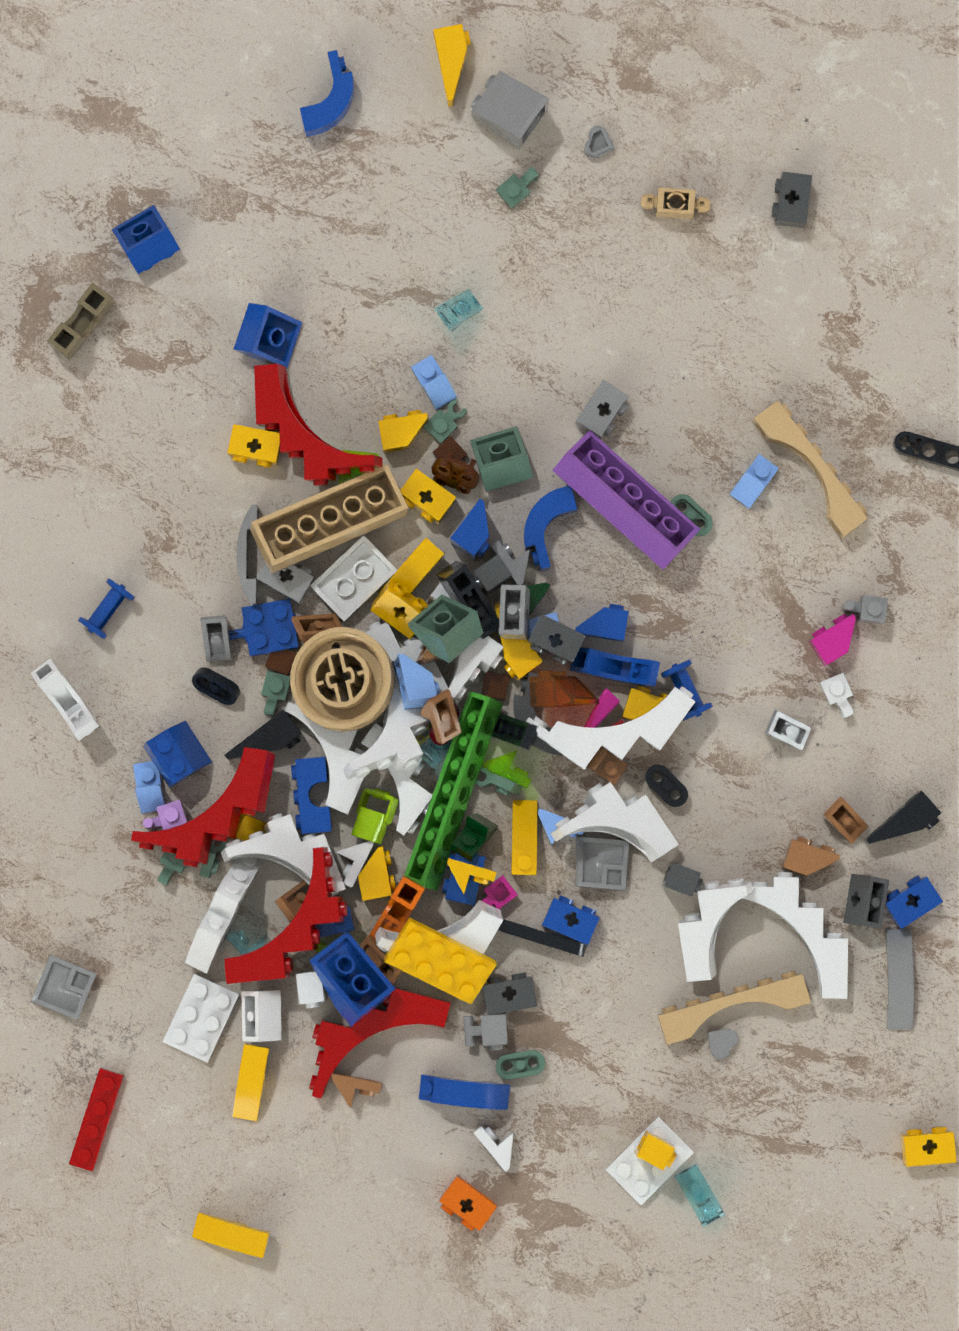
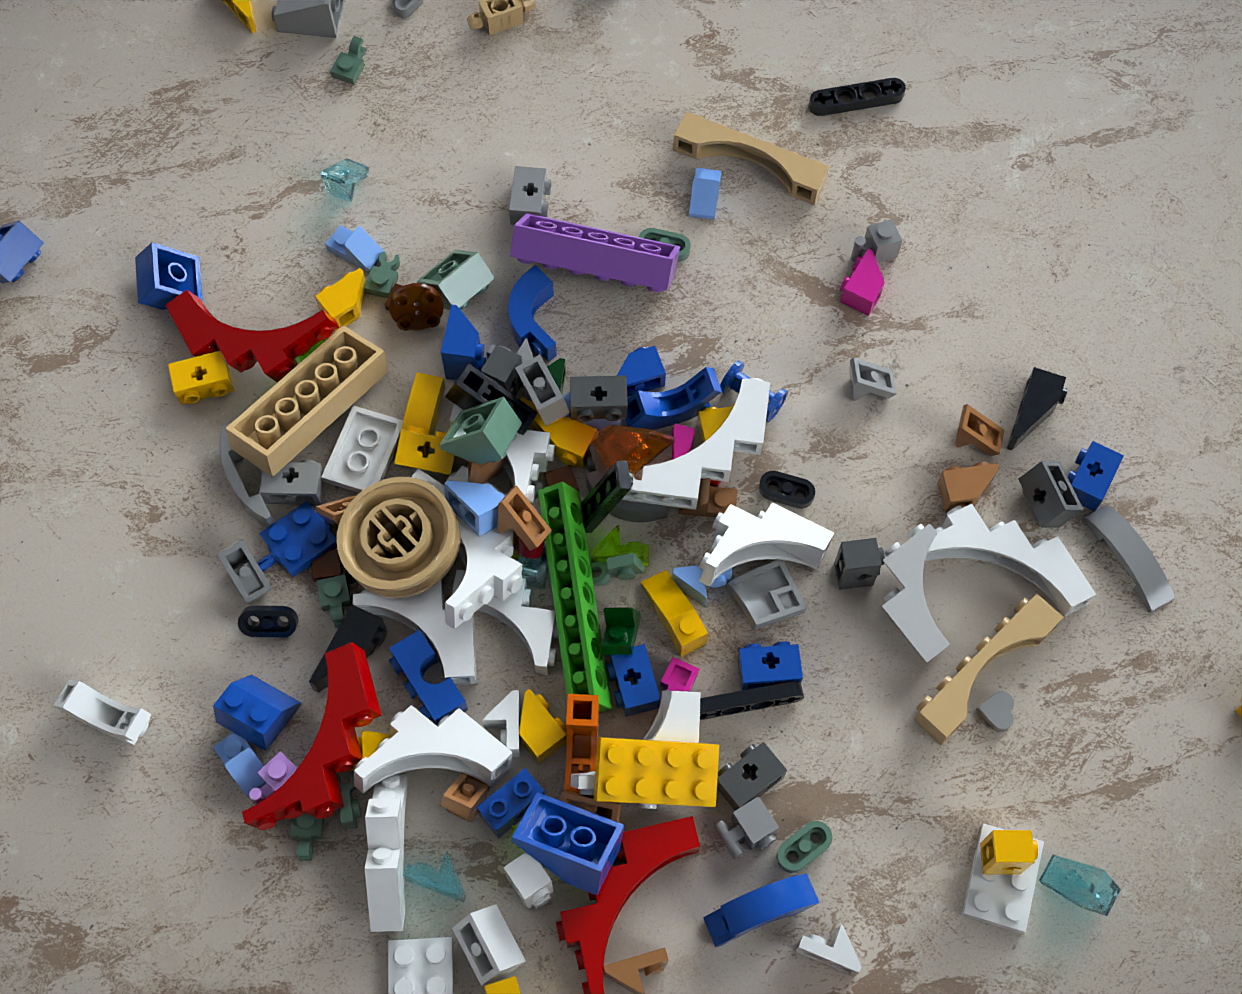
camera: 30 degrees left, 20 degrees down
(106, 608) = (111, 602): blue hose -> none
(300, 935) = (467, 869): red arch -> none
(331, 111) = (142, 74): blue arch -> none
(372, 824) = (506, 670): lime piece -> none
(422, 484) = (402, 342): yellow brick -> none
(463, 870) = (629, 664): yellow slope -> none
(837, 691) = (897, 328): white plate -> none

